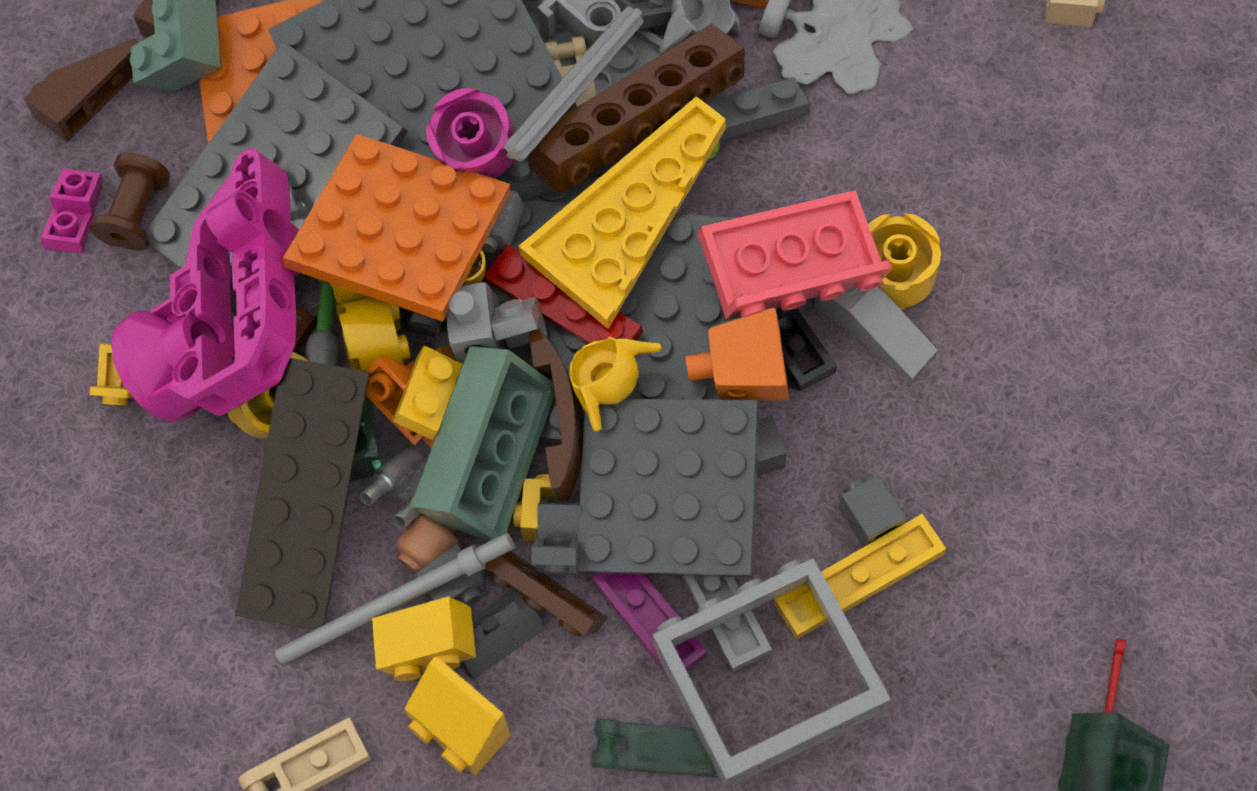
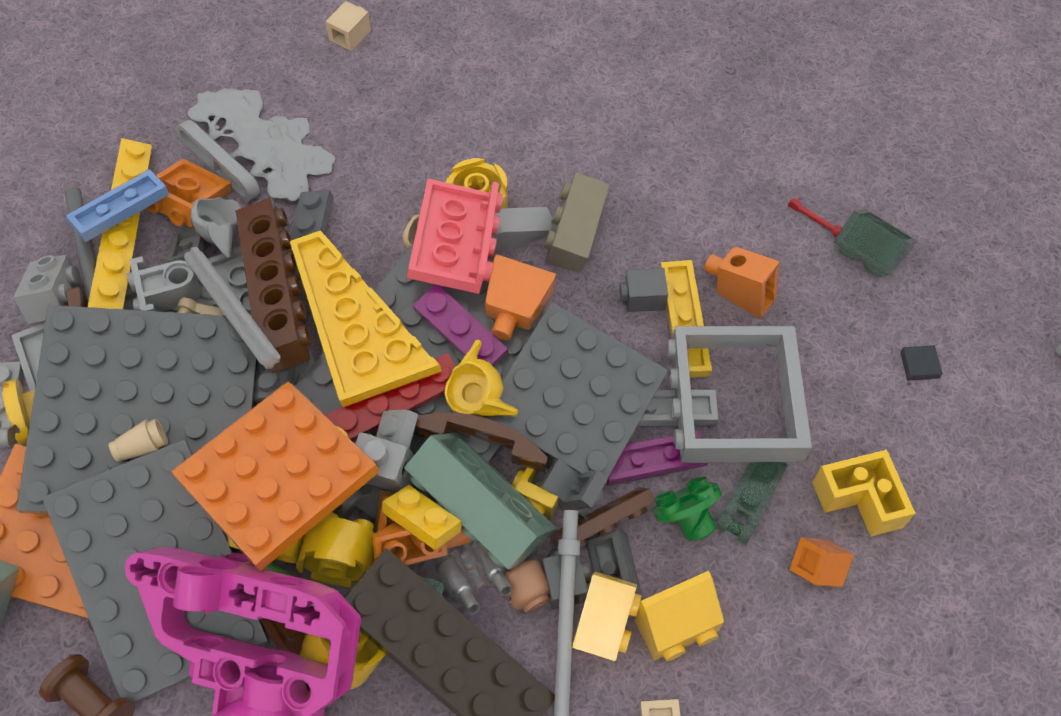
camera: 70 degrees left, 5 degrees down
(382, 89) = (139, 441): none -> tan cone
(467, 113) = (216, 376): dark pink brick -> none
(597, 677) = (689, 508): none -> green plate
(679, 325) = (458, 325): none -> magenta plate
(925, 389) = (576, 222): none -> dark tan brick
(947, 623) = (746, 279): none -> orange torso

